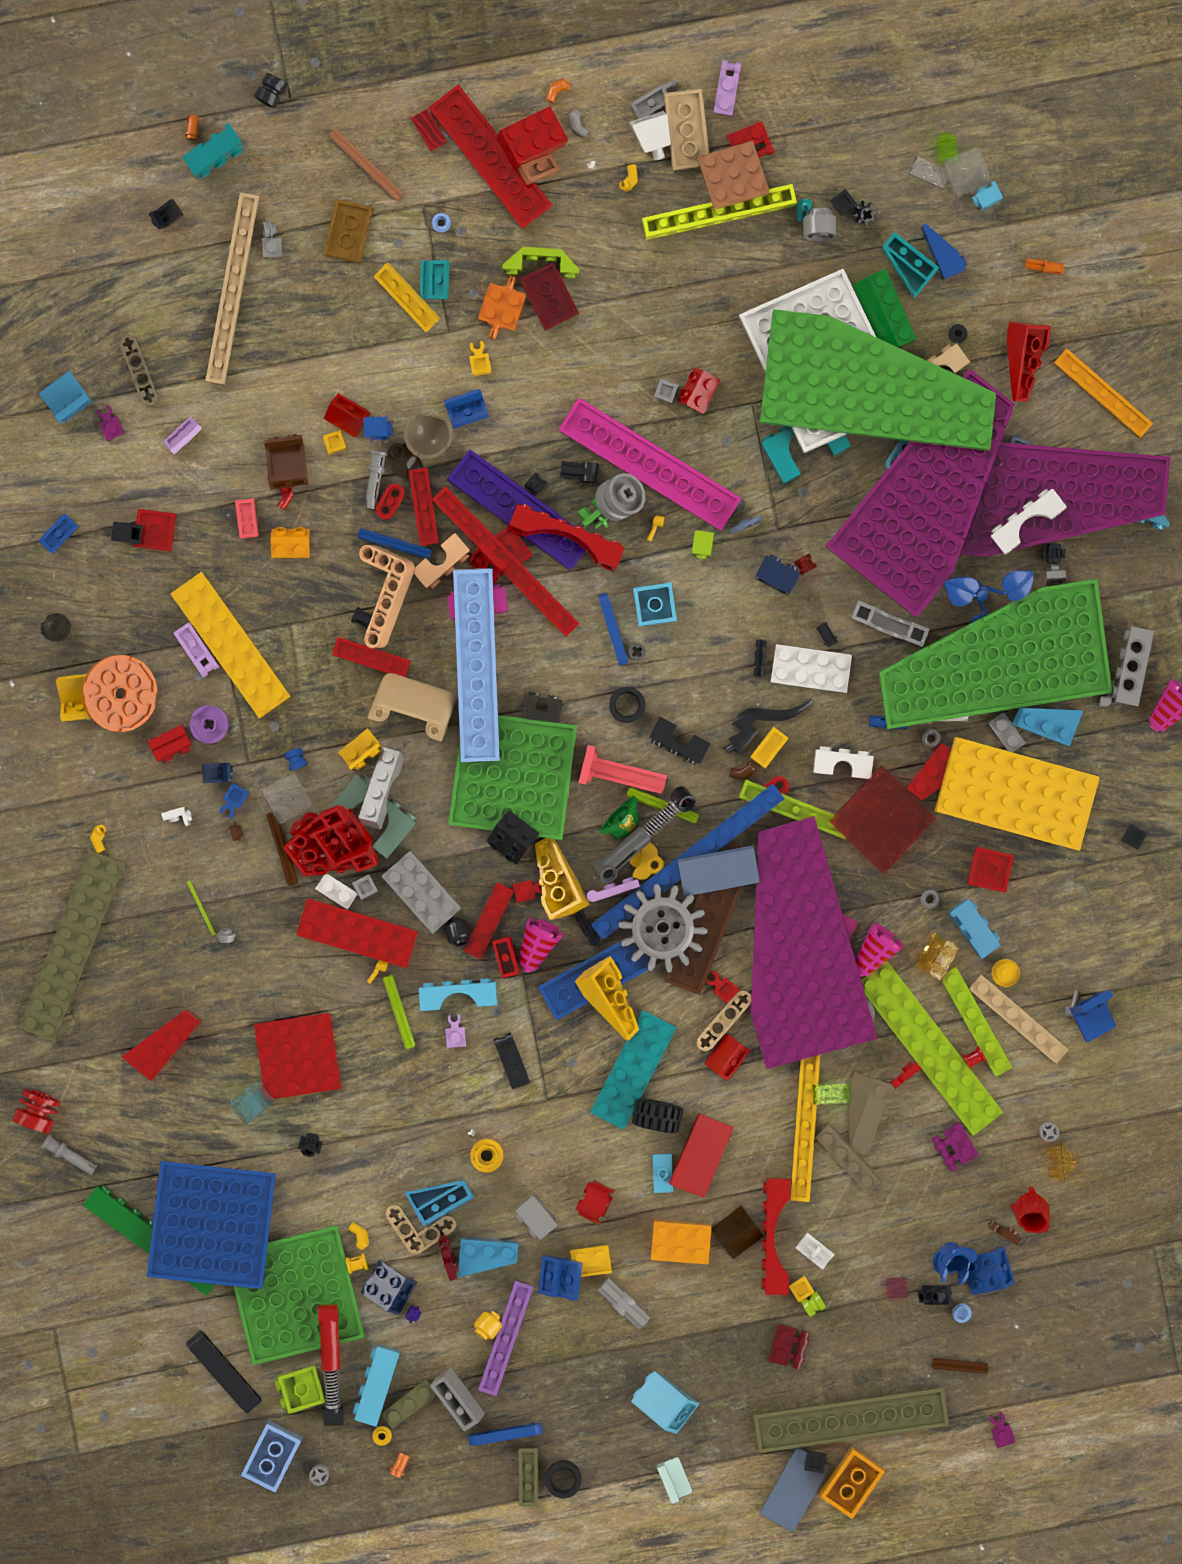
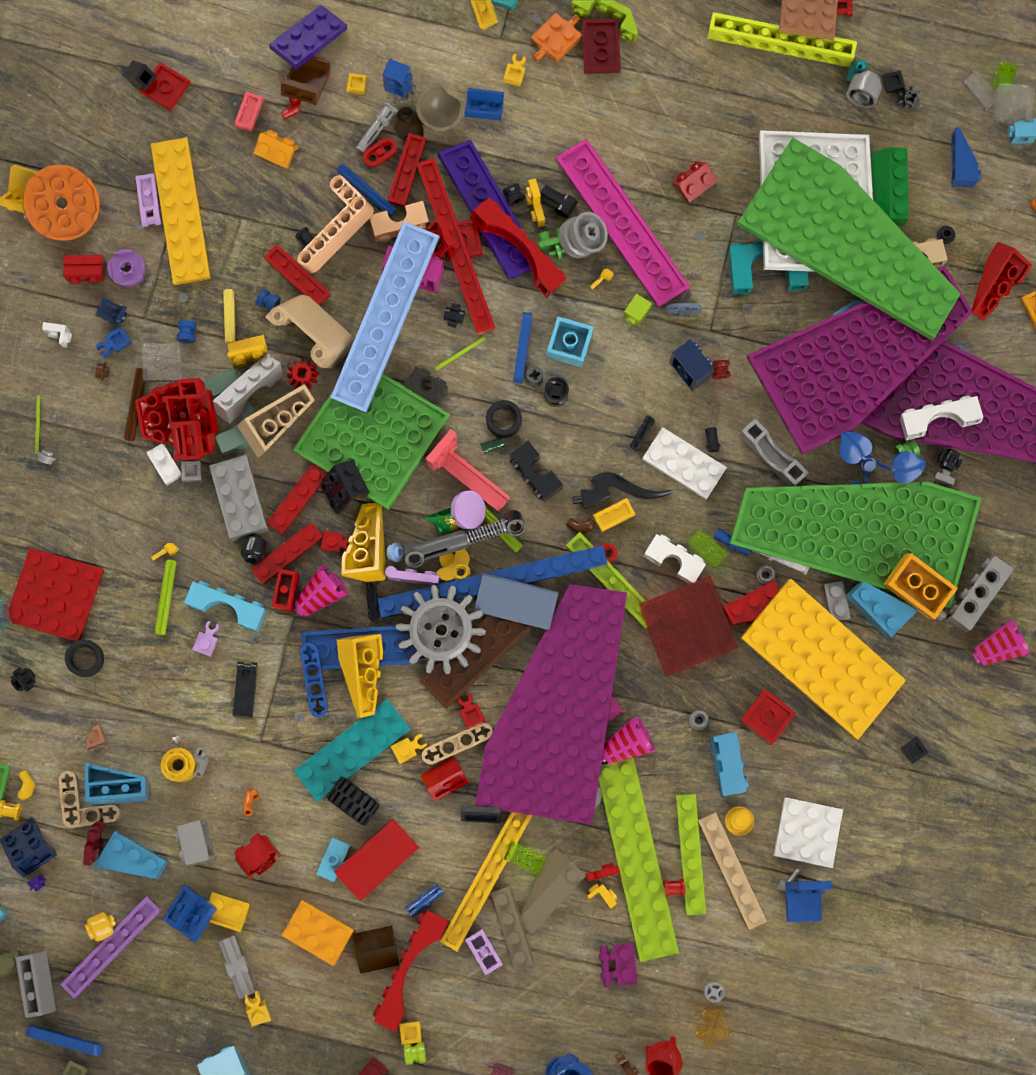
camera: 20 degrees right, 10 degrees down
(55, 627) = (37, 126): clear smoke hair -> none
(58, 533) = (81, 51): blue plate -> none
(182, 435) = (229, 19): lavender plate -> none
(268, 419) = (308, 36): none -> dark purple plate
(326, 725) = (229, 315): none -> light yellow axle
(346, 415) = (373, 63): red panel -> none
(354, 860) = (190, 437): none -> red plate
(356, 694) = (267, 300): none -> blue wheel
(357, 932) = (163, 508): red brick -> none
(368, 1095) = (80, 644): none -> black tyre
(399, 1164) = (96, 737): none -> nougat tile
(416, 751) = (307, 369): none -> red gear
(419, 810) = (273, 420): none -> tan wedge
(473, 866) = (297, 499): none -> red plate
(505, 1143) = (201, 762): none -> light grey arm
(535, 628) = (454, 315): none -> black gear
(556, 480) = (533, 198): none -> yellow plate
(556, 659) = (460, 353): none -> lime piece
(564, 1160) = (248, 802): none -> orange arm
(569, 1024) = (314, 679): none -> blue beam
(586, 875) = (395, 552): none -> light blue plate
(628, 734) = (493, 445): none -> clear green pin
(636, 807) = (468, 509): none -> lavender tile
(659, 1331) = (256, 1010): none -> yellow plate
(664, 657) = (556, 391): none -> black wheel
(666, 391) = (665, 168): light grey plate -> none
(680, 1046) = (405, 749): none -> yellow plate
(760, 1170) = (424, 900): none -> blue pin
(774, 1073) = (480, 814): none -> black tile
(814, 1250) = (440, 1001): white hips -> none
(833, 1191) = (484, 951): none -> lavender brick
(867, 738) = (707, 548): none -> clear neon green plate
(908, 264) = (929, 155): teal wedge -> none
(918, 1092) = (607, 895): none -> yellow bracket
(937, 956) = (682, 775): clear yellow bracket -> none
(1010, 562) = (908, 446): none -> bright green wheel
(1071, 954) = (808, 832): none -> white plate
(1075, 689) = (920, 586): none -> light orange brick

